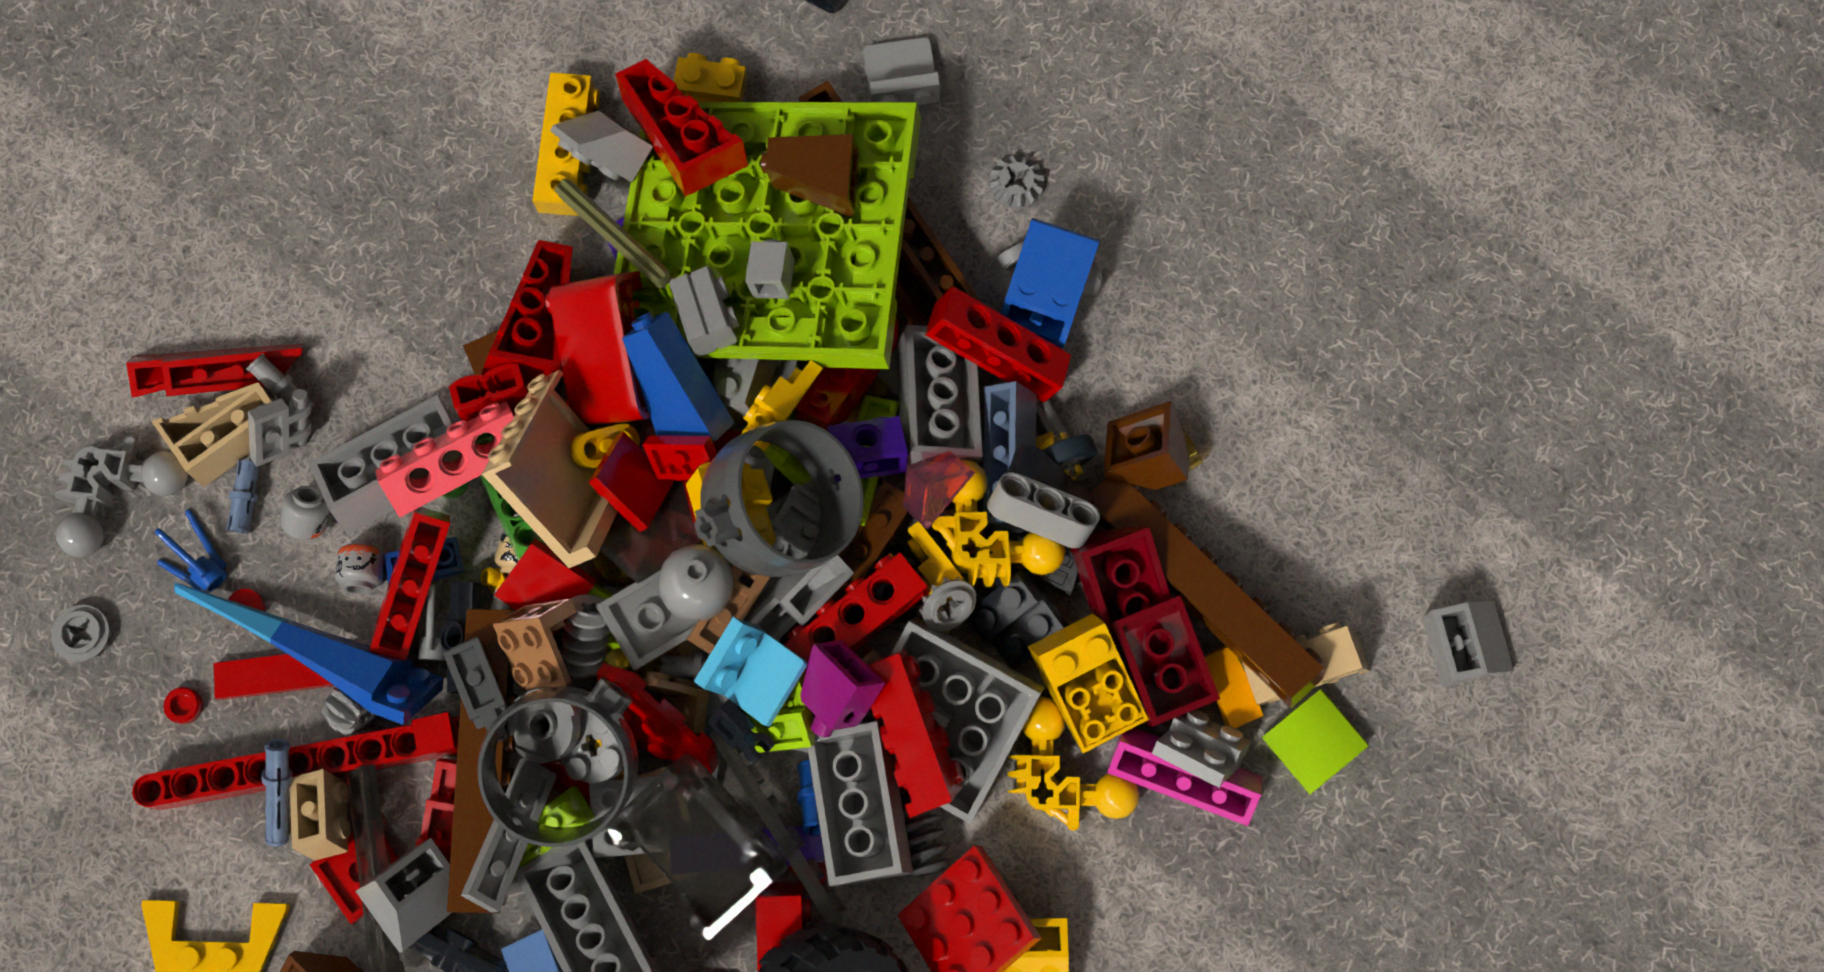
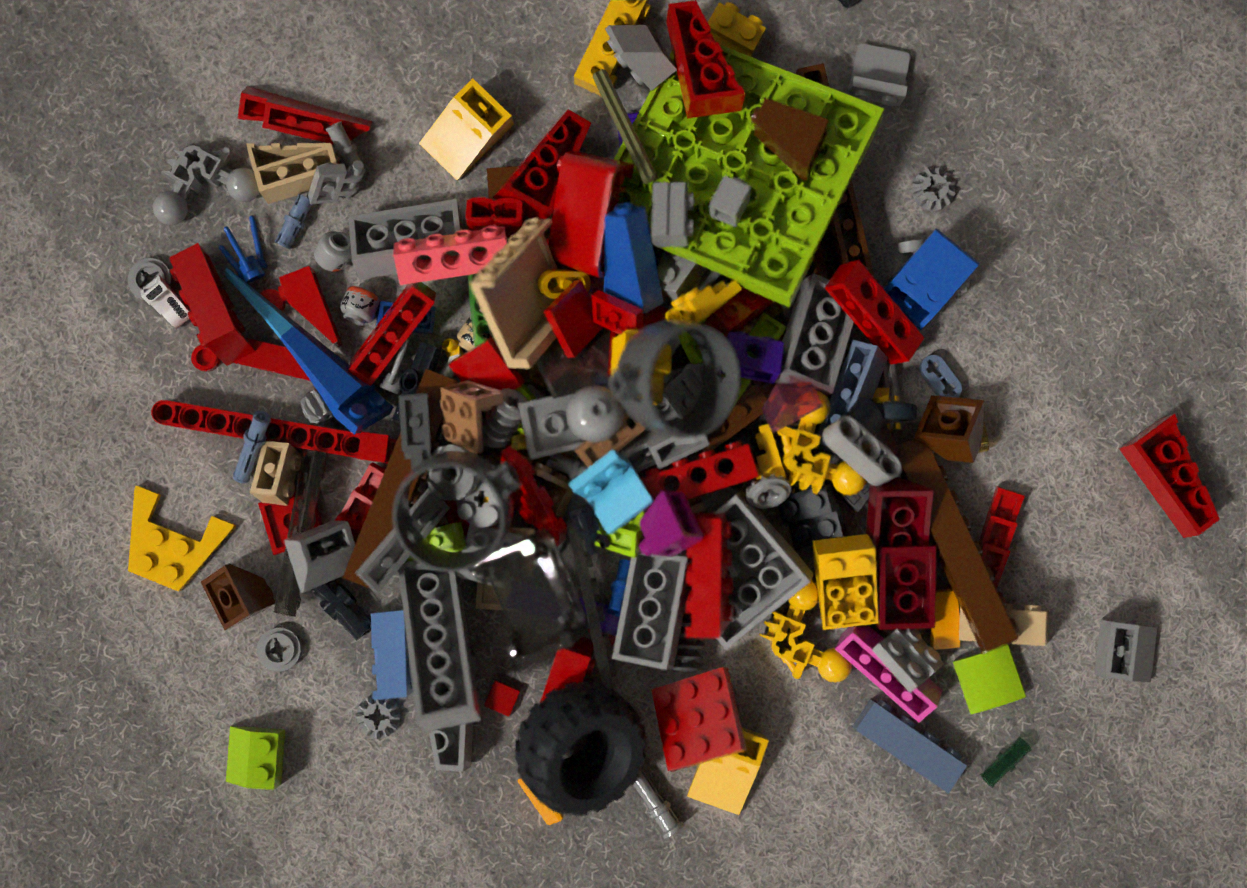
camera: 20 degrees right, 10 degrees up
(111, 652) = (165, 301): none -> white leg
(168, 636) = (209, 305): none -> red wedge
(288, 582) = (306, 296): none -> red slope
(423, 309) = (466, 129): none -> yellow slope
(1114, 390) = (945, 374): none -> sand blue beam
(1249, 862) = (910, 746): none -> sand blue brick
(1255, 552) = (999, 530): none -> red slope
(1377, 838) = (1005, 762): none -> clear green pin
(1435, 412) = (1171, 476): none -> red wedge

